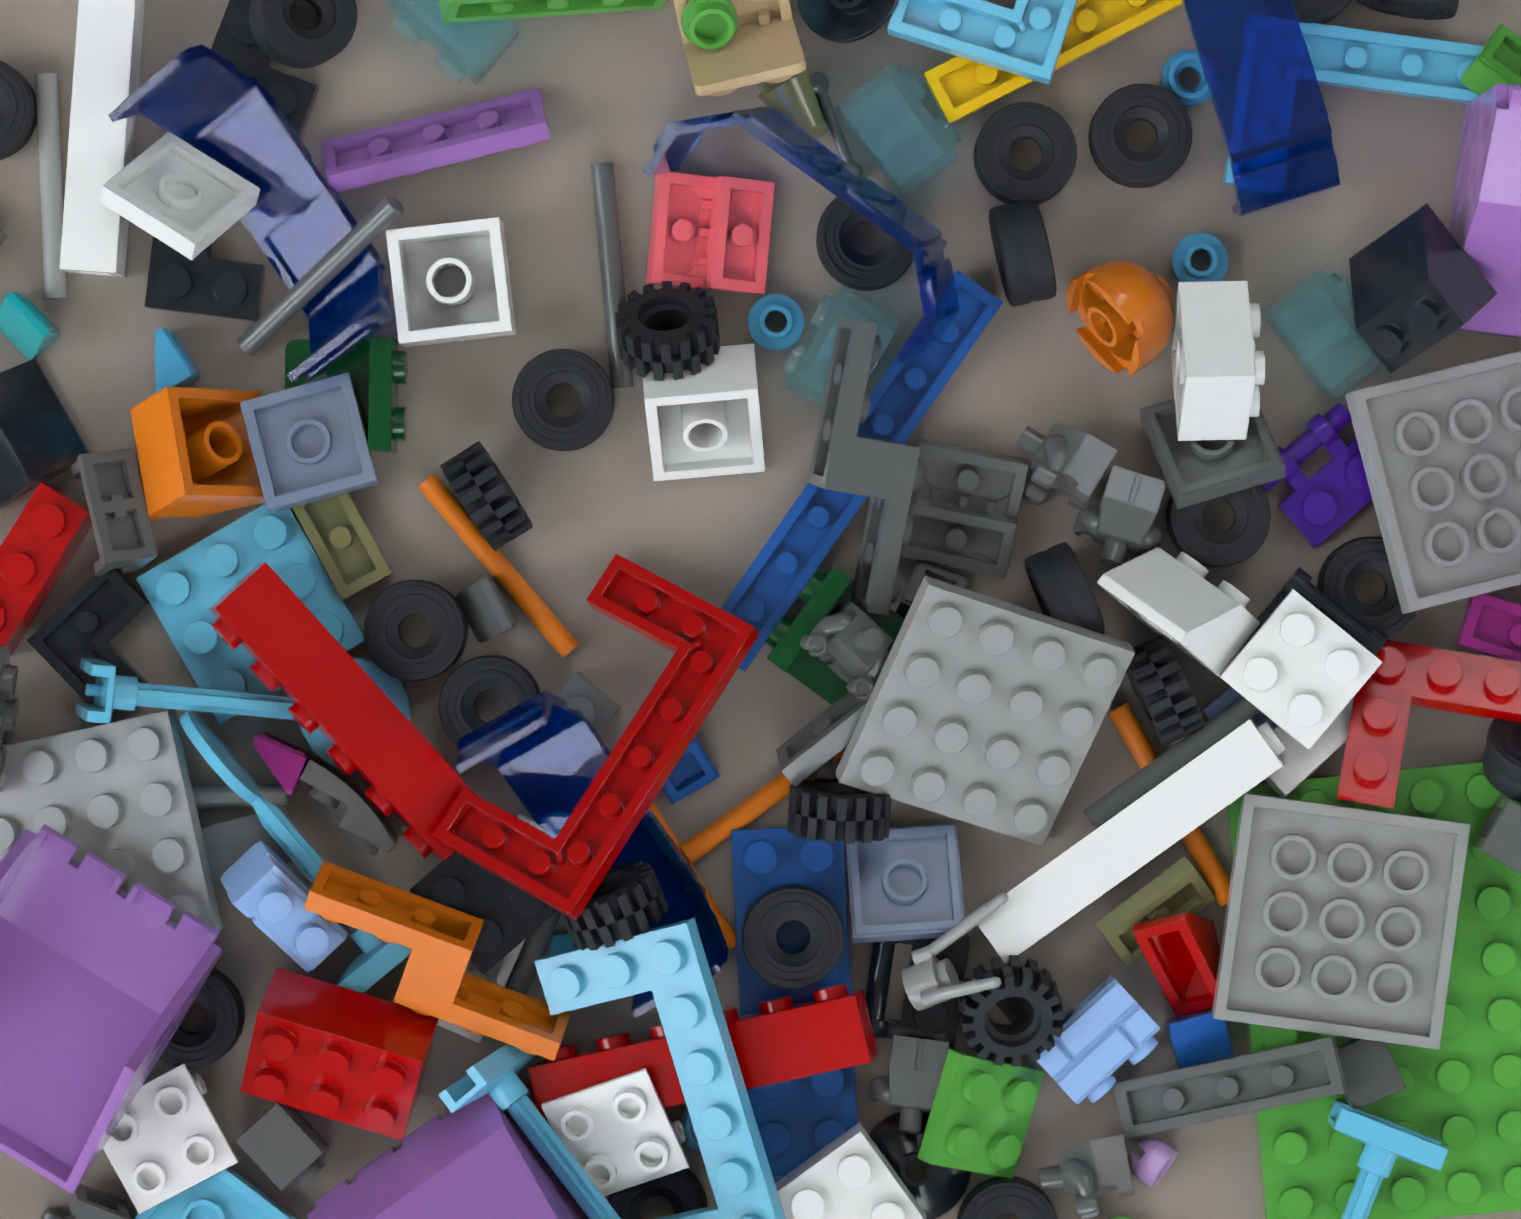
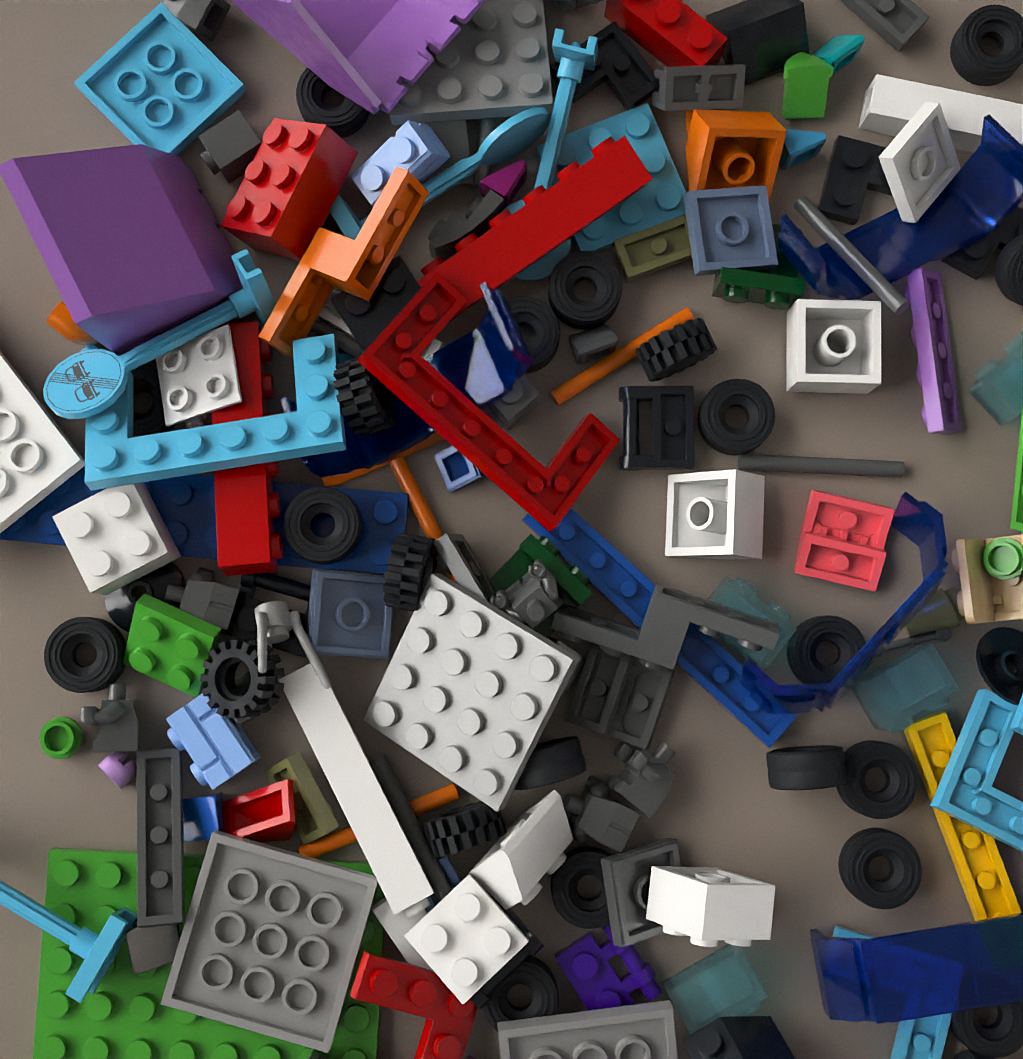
camera: 95 degrees right, 5 degrees down
(50, 183) = (998, 91): light grey bar -> none
(81, 362) = (805, 86): none -> bright green tile
(167, 1140) = (249, 66): white hinge -> none
(590, 487) = (670, 428): none -> black plate
(667, 330) = (780, 496): black tyre -> none
(779, 340) = (762, 584): dark azure plate -> none
(1124, 313) = (750, 837): orange cylinder -> none
(1169, 78) = (928, 917): dark azure plate -> none
(1205, 242) = (794, 903): dark azure plate -> none

